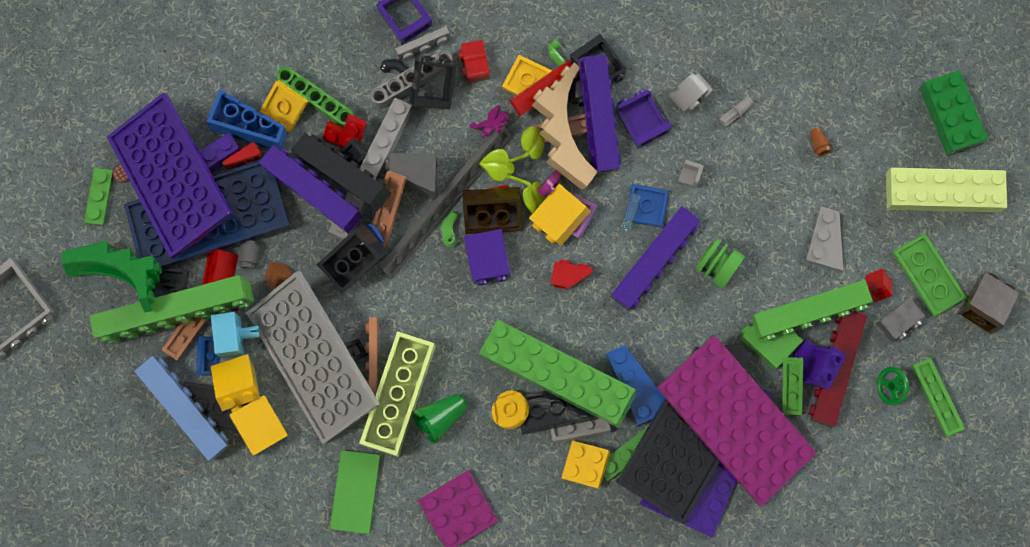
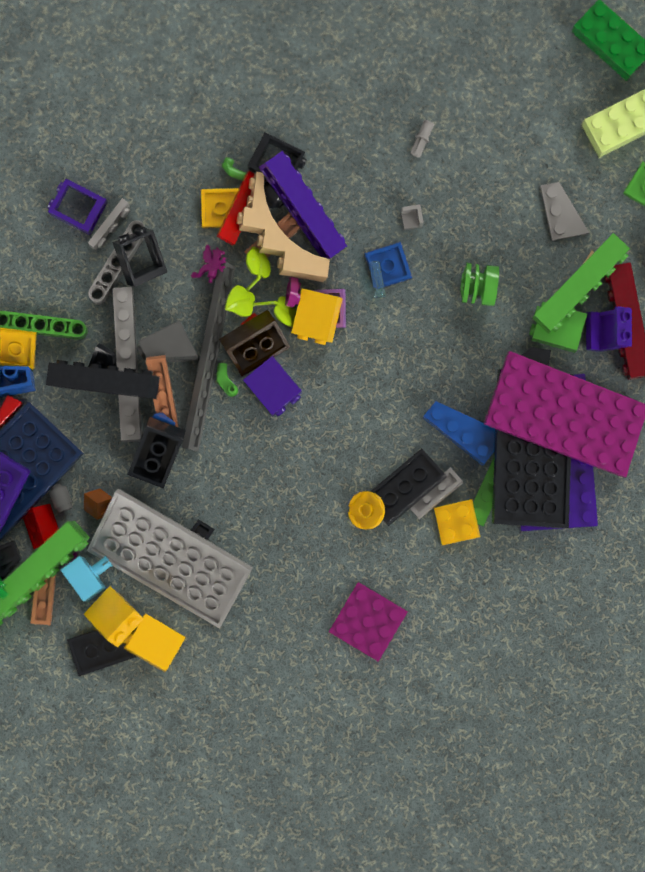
camera: 30 degrees left, 5 degrees up
(182, 407) = (78, 663): medium blue brick -> none
(205, 356) = (73, 607): blue slope -> none
(310, 189) = (84, 410): dark purple brick -> none
(341, 135) = (84, 347): red plate -> none
(355, 492) = (270, 653): bright green tile -> none
(372, 348) = (216, 521): nougat plate -> none
(388, 64) = (93, 256): black arm -> none
(398, 394) = (261, 549): yellowish green brick -> none
(439, 416) = (308, 549): green cone -> none
(474, 60) = (165, 216): red brick -> none
(558, 373) = (391, 456): bright green brick -> none
(568, 275) = (353, 365): red slope -> none
(642, 118) = (342, 189): dark purple panel -> none
(655, 258) = (420, 309): dark purple brick -> none
(690, 91) = (373, 142): light grey brick -> none
(792, 386) = (598, 358): bright green plate -> none
(820, 143) = (510, 128): dark orange cone -> none
(879, 285) = (626, 229): red panel -> none

